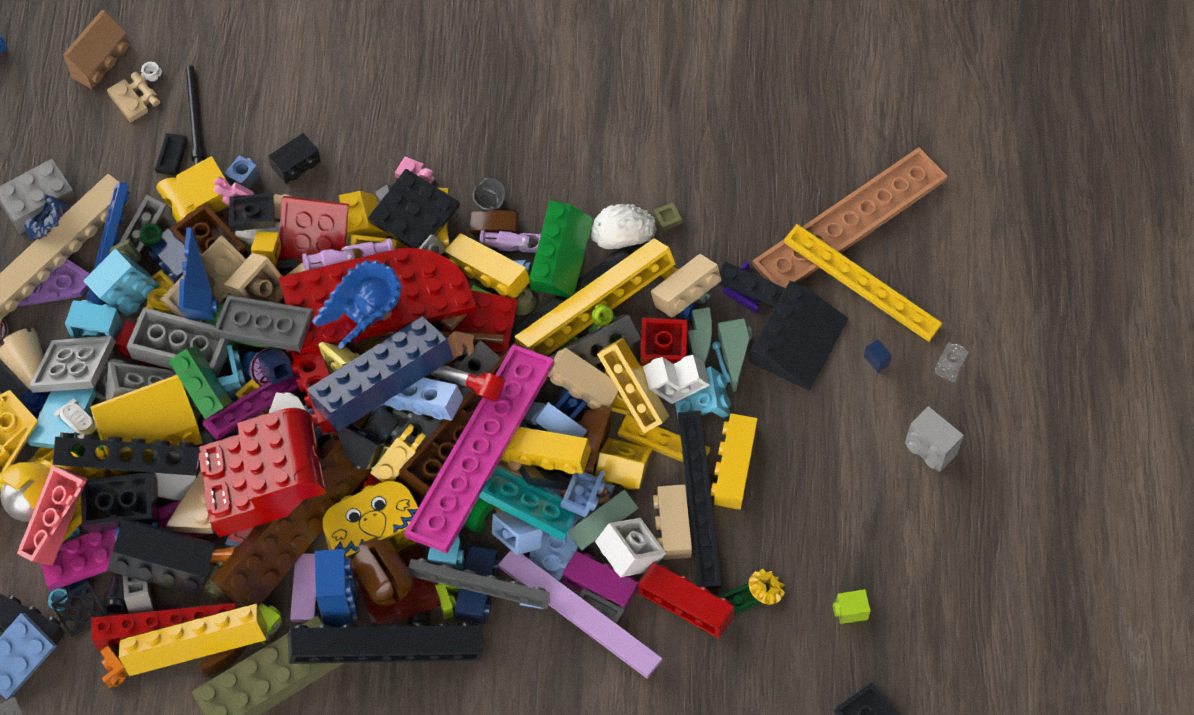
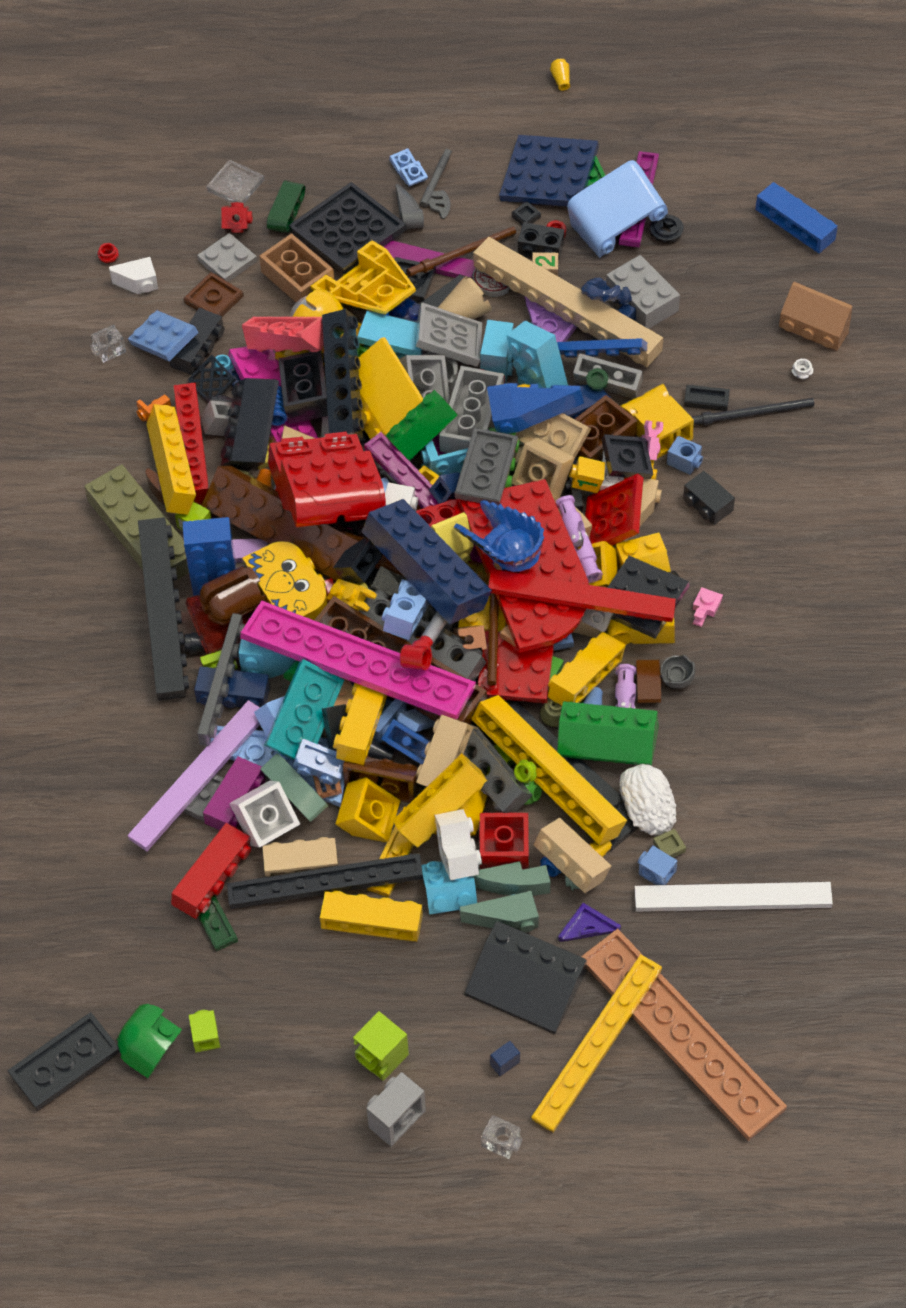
camera: 90 degrees right, 5 degrees down
(76, 418) = (393, 336): white piece -> none
(127, 99) = (766, 355): tan plate -> none
(128, 249) = (571, 360): olive plate -> none
(422, 251) = (582, 595): none -> red tile
(557, 422) = (390, 741): light blue slope -> none
(690, 226) = (657, 866): none -> medium blue brick
(718, 175) = (733, 896): none -> white tile
(750, 285) = (585, 923): black plate -> none
(758, 587) = (217, 954): yellow gear -> none
(865, 654) = (146, 1038): none -> green brick
(873, 450) = (381, 1046): none -> lime piece

